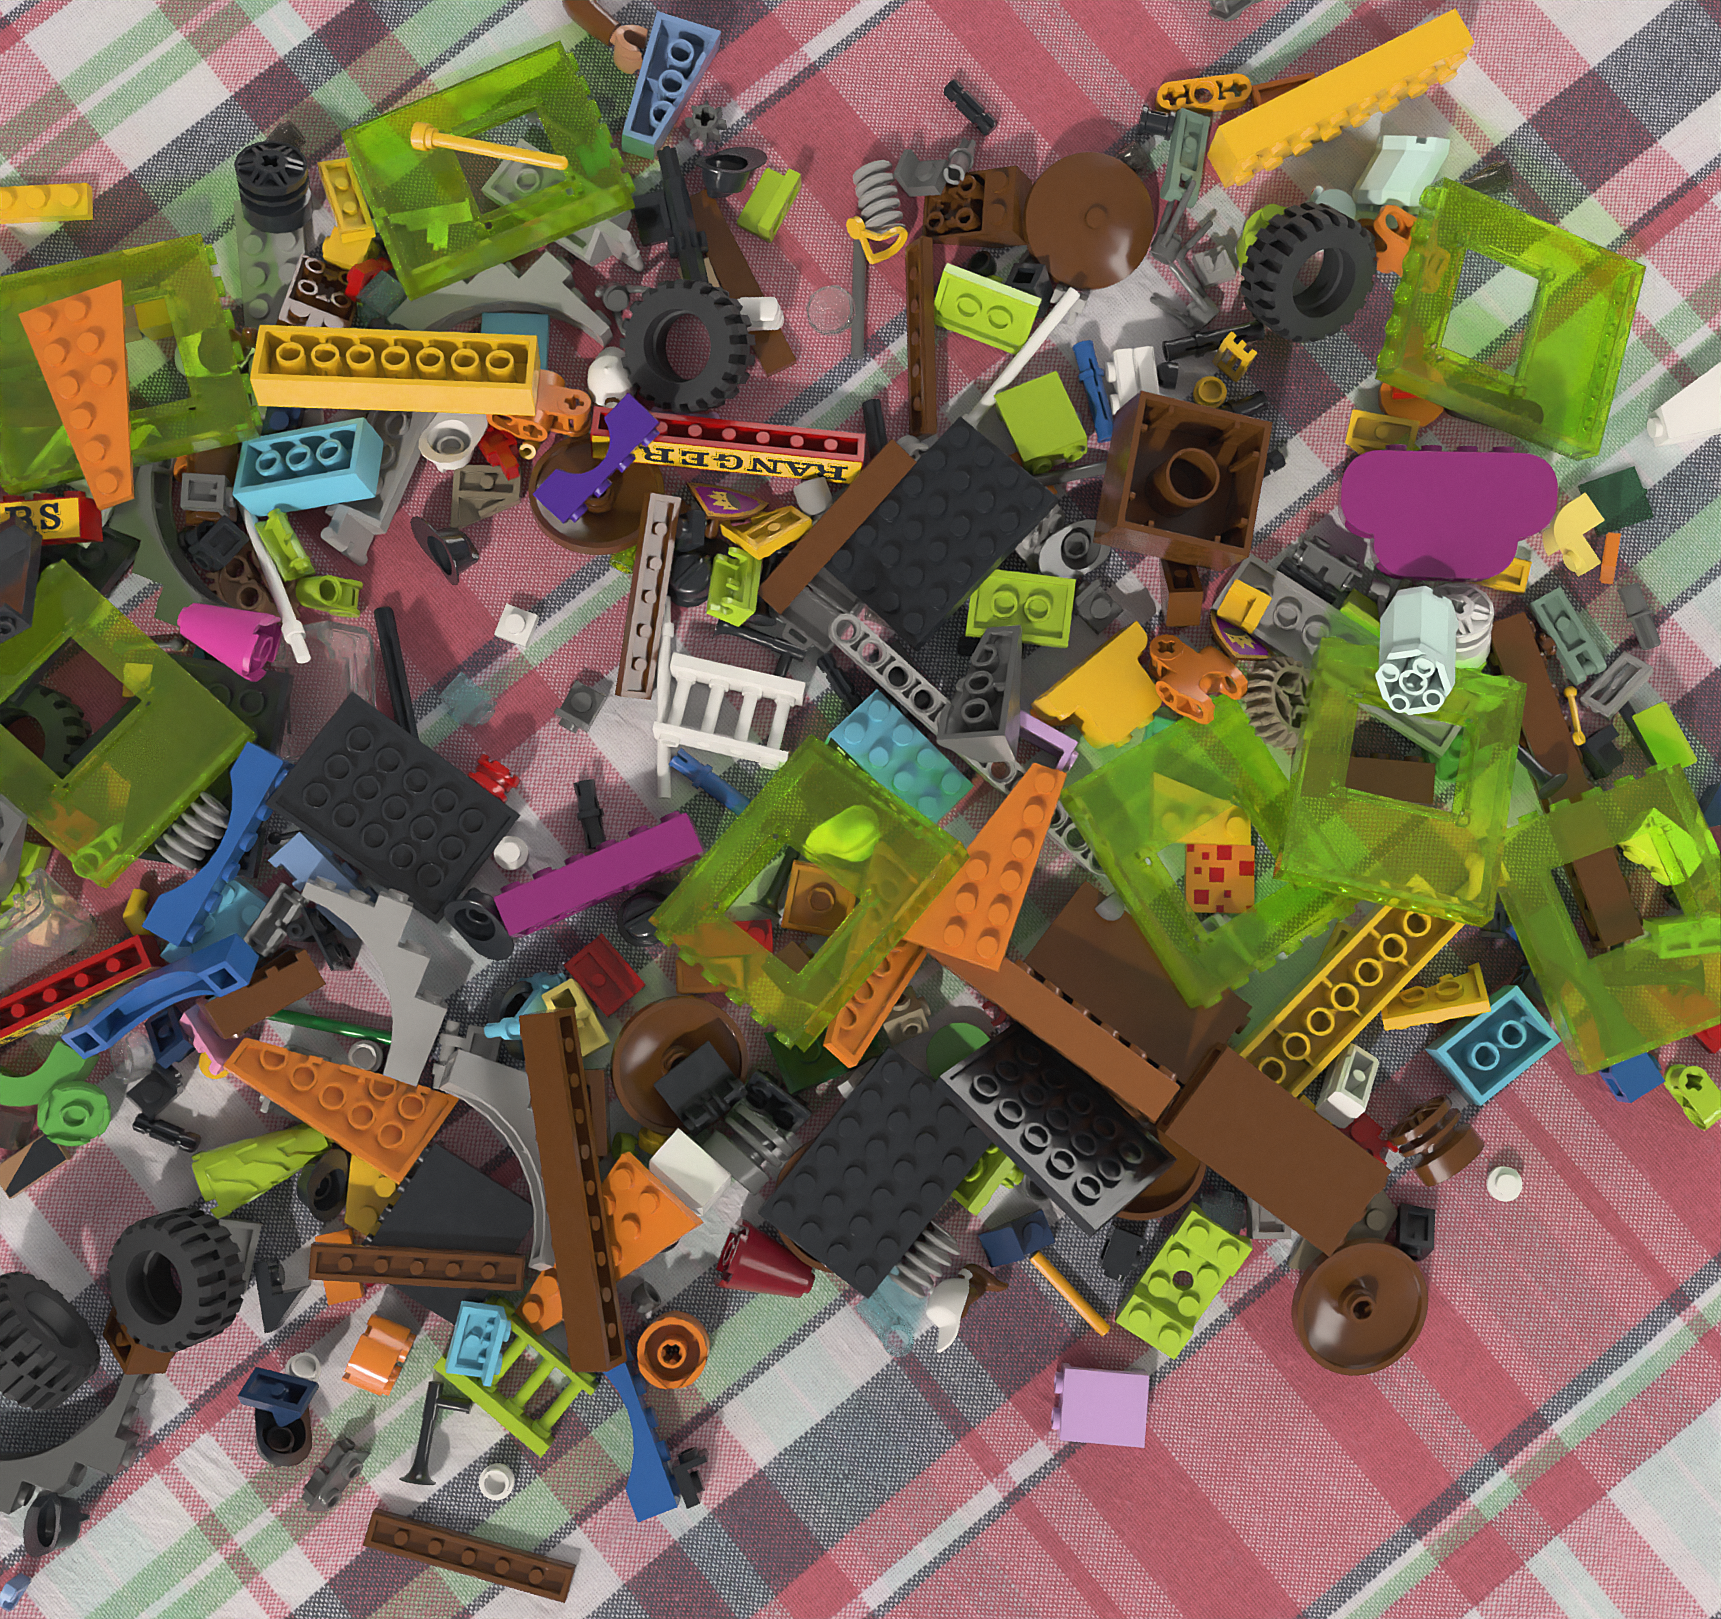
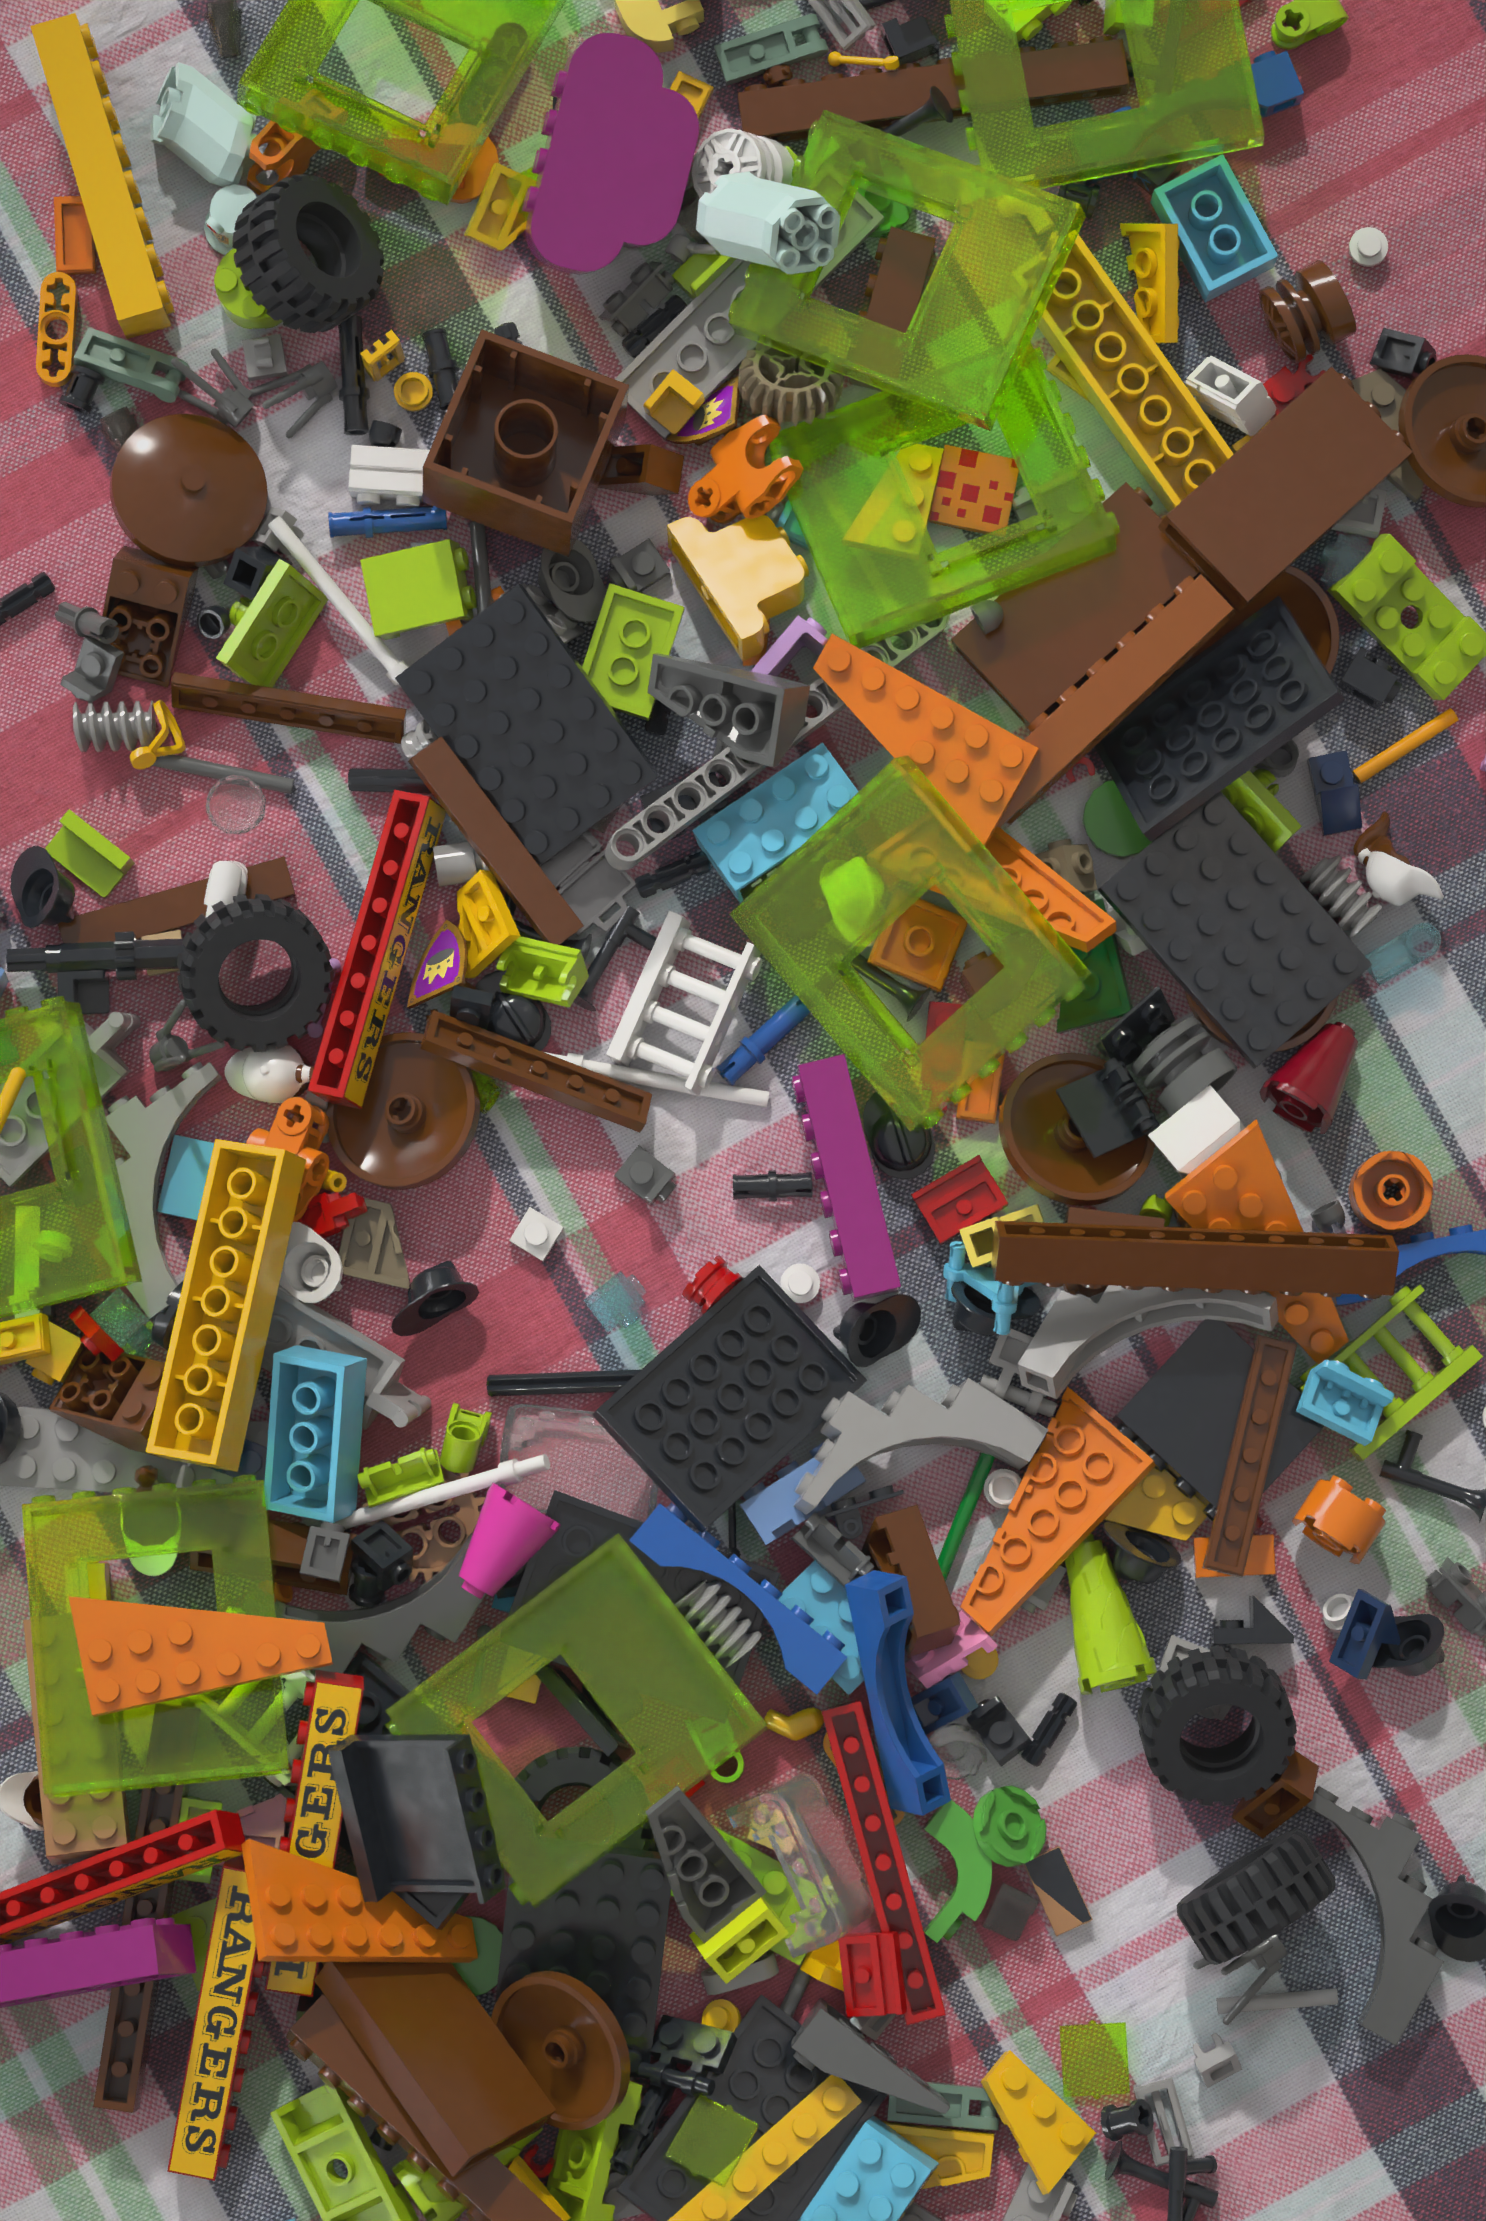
camera: 80 degrees left, 0 degrees up
(568, 492) = (406, 1131): dark purple arch -> none
(650, 1140) = (1156, 1176): yellow plate -> none

